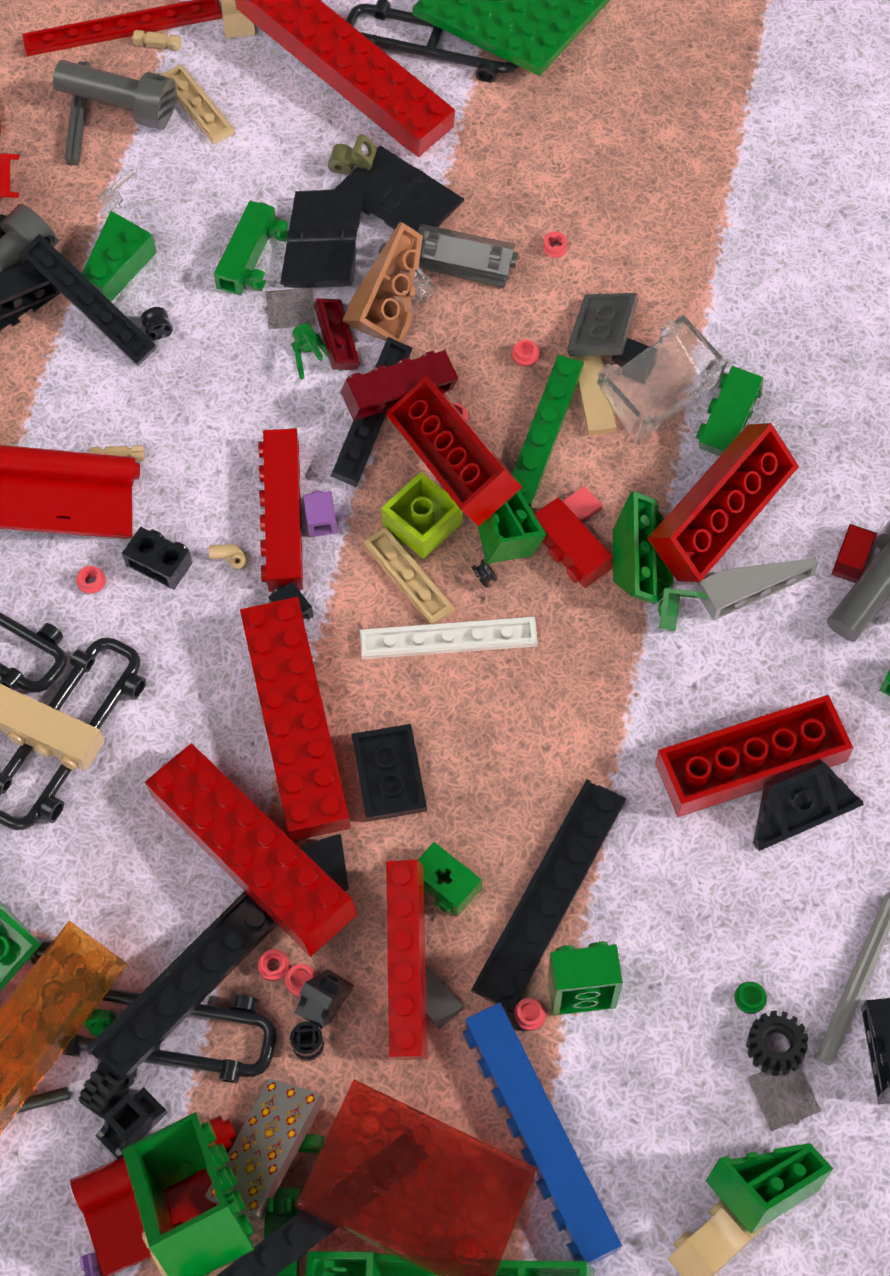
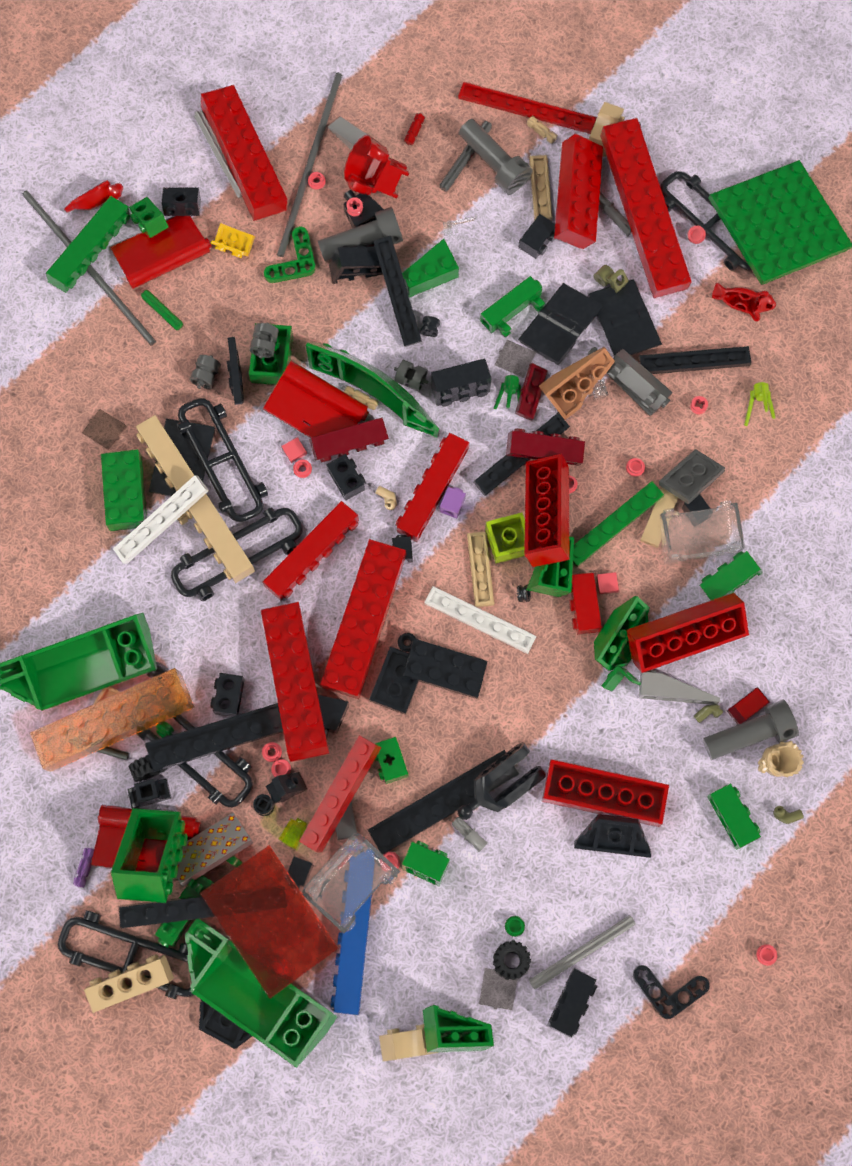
camera: 30 degrees right, 10 degrees up
(65, 563) = (294, 450): none -> coral tile
(121, 421) = (372, 381): none -> green slope
(132, 508) = (348, 439): none -> dark red brick
(167, 675) = (311, 551): none -> red brick
(170, 921) = (233, 695): none -> black brick
(171, 390) = (411, 375): none -> dark grey wheel
(229, 155) = (537, 237): none -> black brick
(239, 364) = (461, 382): none -> black brick
(249, 80) = (578, 191): none -> red brick
(305, 87) = (614, 214): none -> dark grey axle
(366, 710) = (406, 636): none -> black plate
(373, 1054) = (292, 833): none -> clear neon green brick
(415, 1094) = (300, 871): none -> black brick
(424, 62) = (696, 234): none -> coral plate
(442, 721) = (445, 668): none -> black plate
(494, 1063) = (349, 881): none -> clear windscreen
(519, 195) = (696, 360): none -> black plate
(531, 101) = (745, 299): none -> red animal
(597, 850) = (510, 794): none -> black piece
(612, 913) = (469, 834): none -> light grey axle
(621, 194) = (761, 393): none -> lime plant
(809, 585) = (707, 710): none -> olive arm

